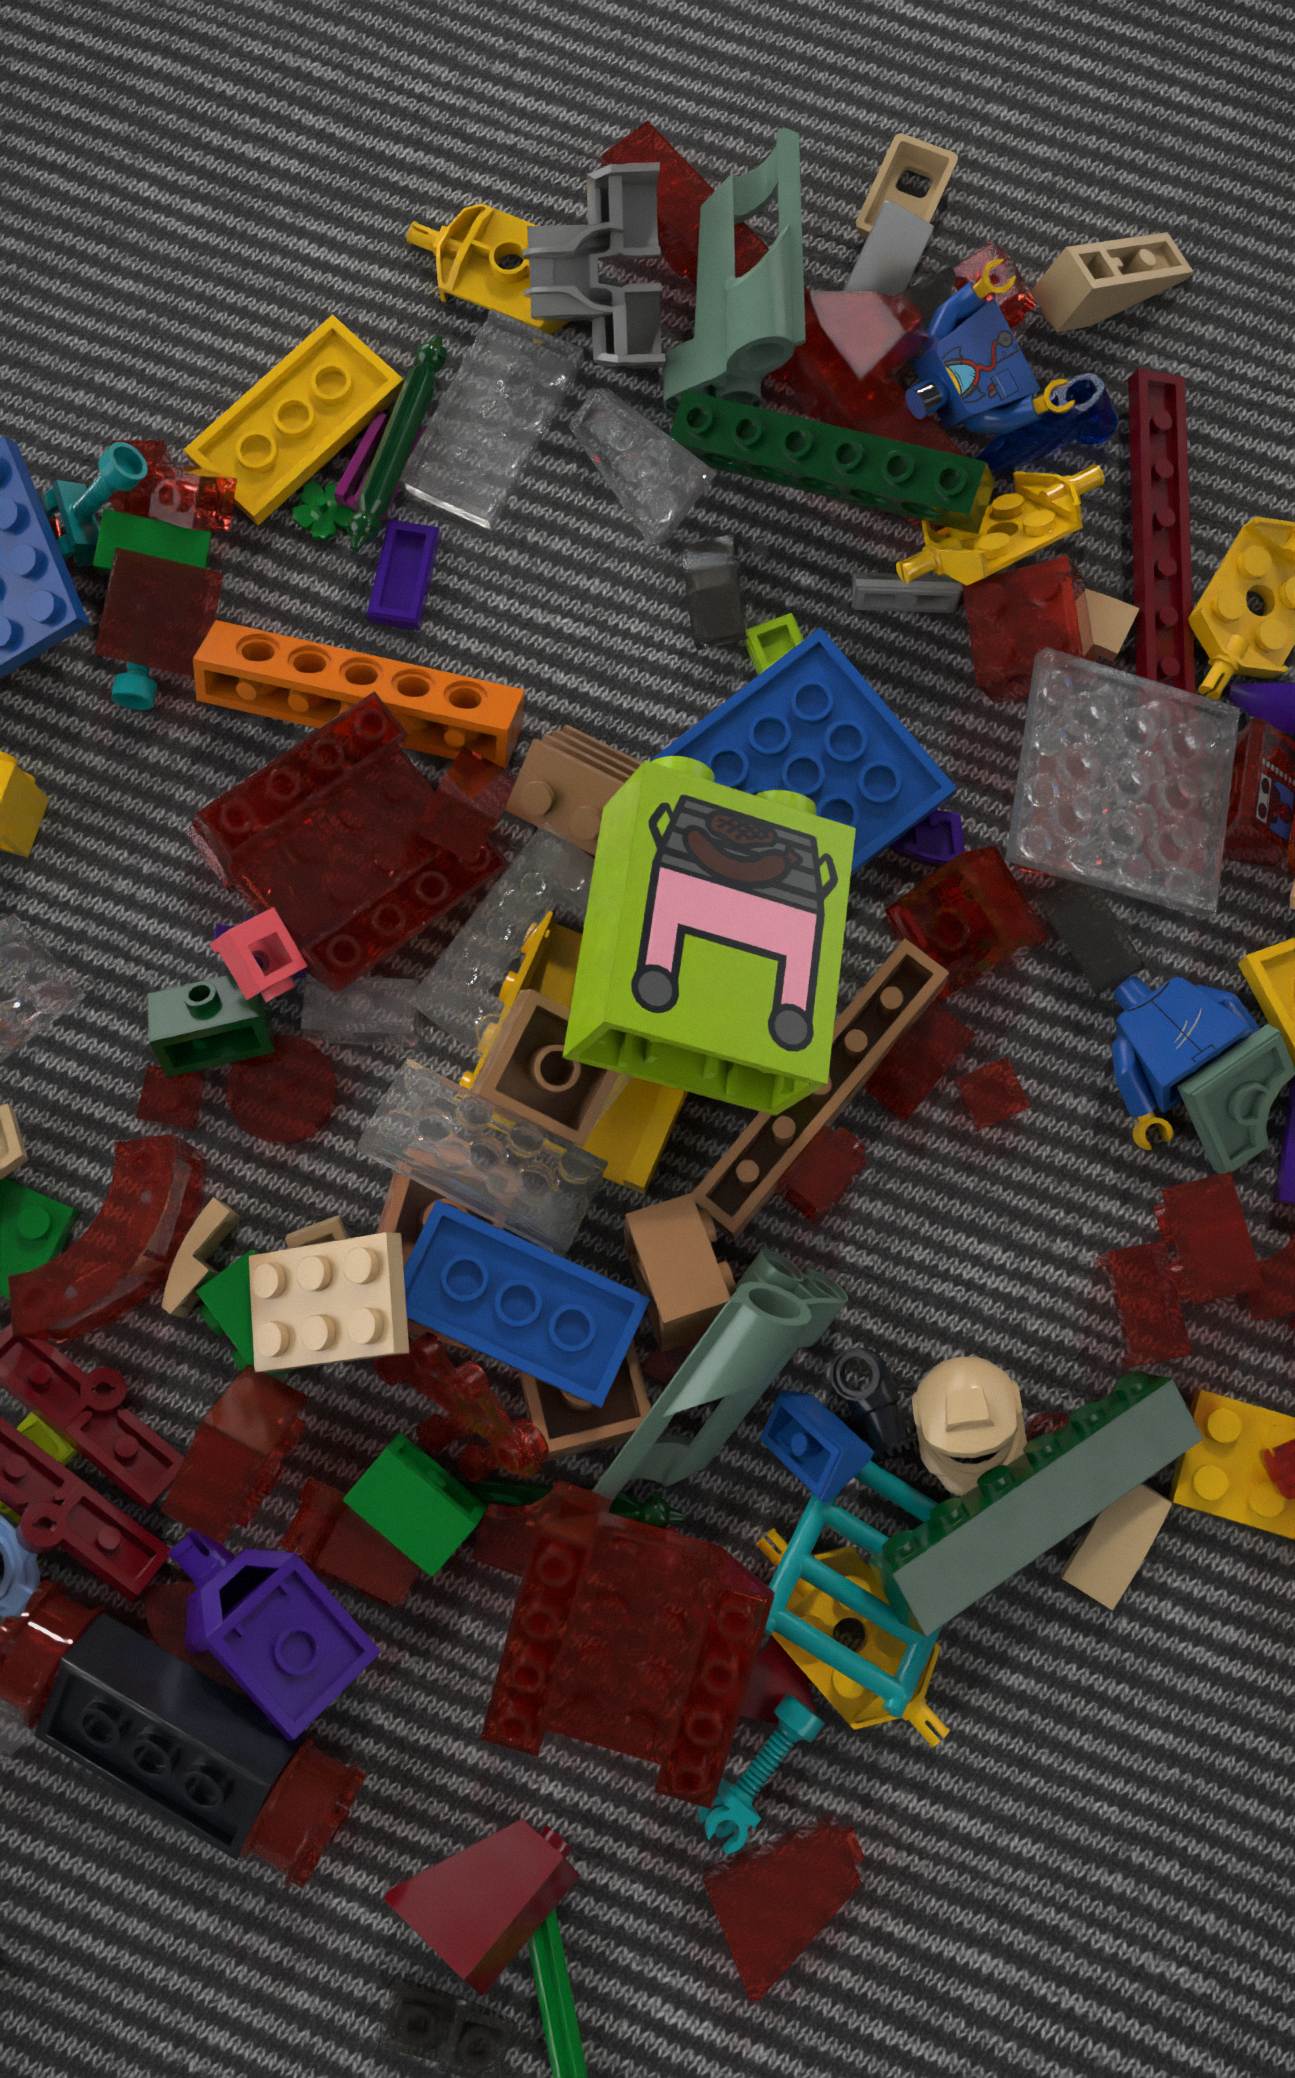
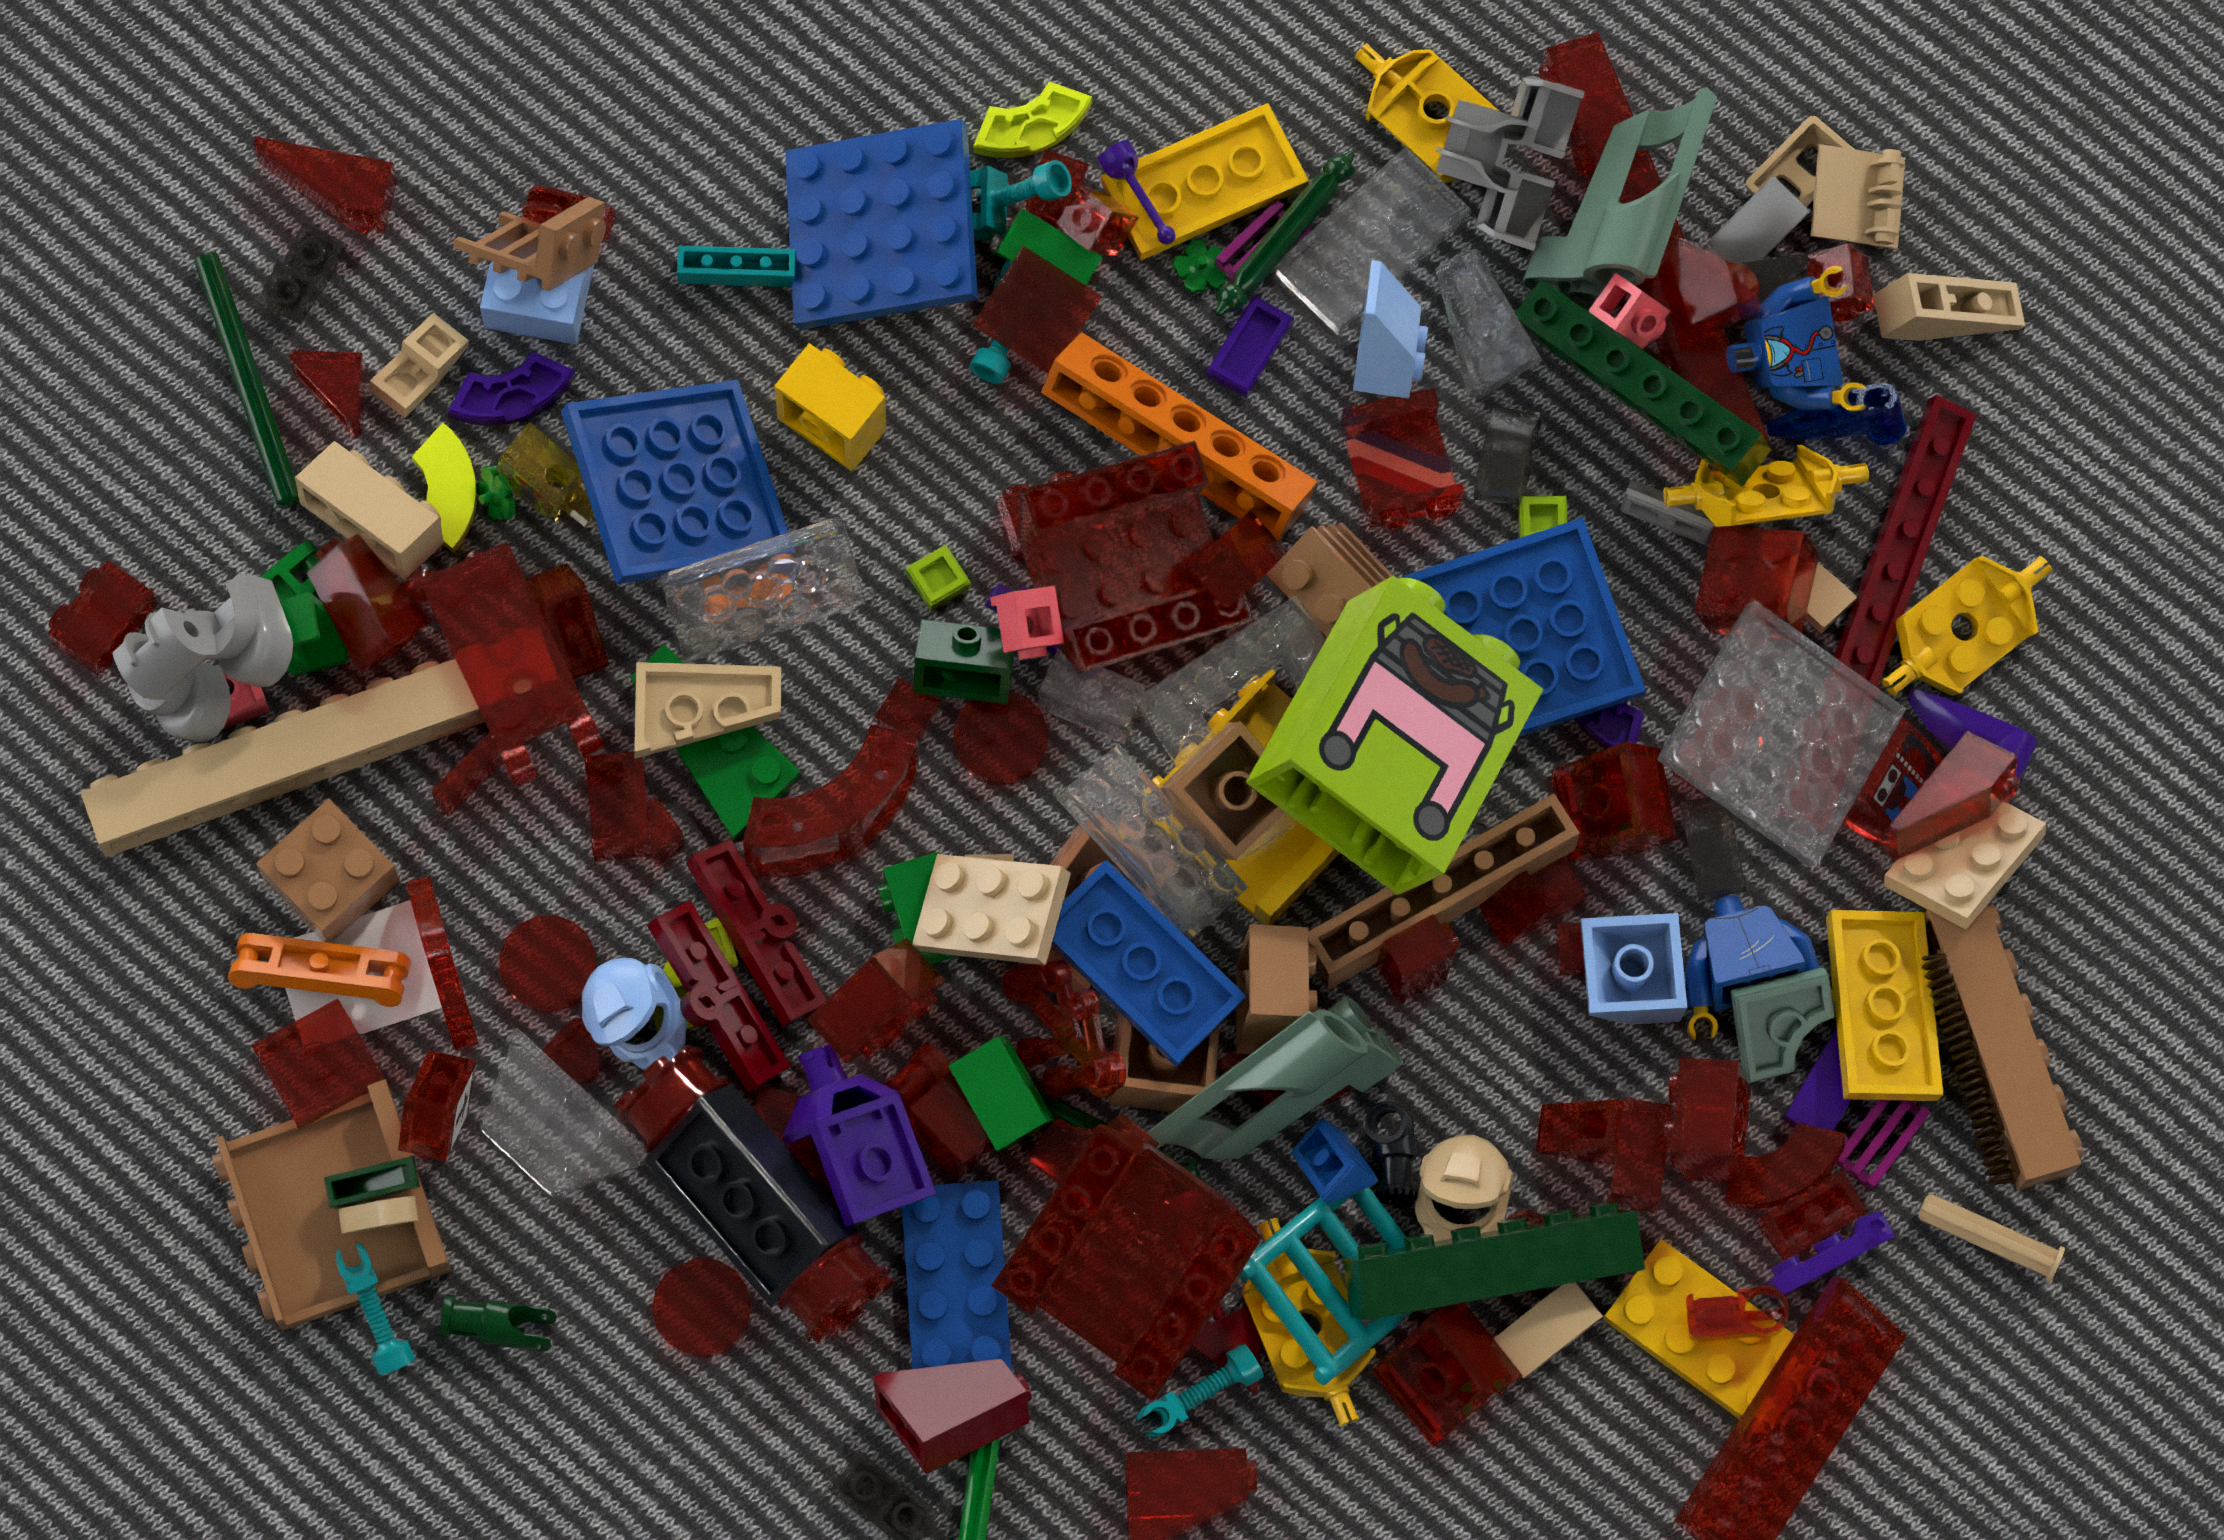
camera: 10 degrees right, 5 degrees down
(86, 433) = (1032, 126): none -> neon yellow tile
(156, 939) = (938, 577): none -> lime tile
(162, 1876) = (701, 1308): none -> clear red tile
(189, 1267) = (881, 850): tan slope -> none
(197, 427) = (1121, 164): none -> dark purple hinge
(429, 1720) = (950, 1264): none -> blue plate
(546, 509) = (1390, 337): none -> light blue slope
(603, 636) = (1400, 460): none -> clear red panel
(803, 392) = (1640, 318): none -> coral brick
(977, 195) = (1858, 196): none -> tan hinge
(1029, 1640) = (1446, 1372): none -> clear red slope
(1062, 1098) = (1634, 968): none -> light blue slope
(1069, 1299) = (1580, 1130): none -> clear red slope

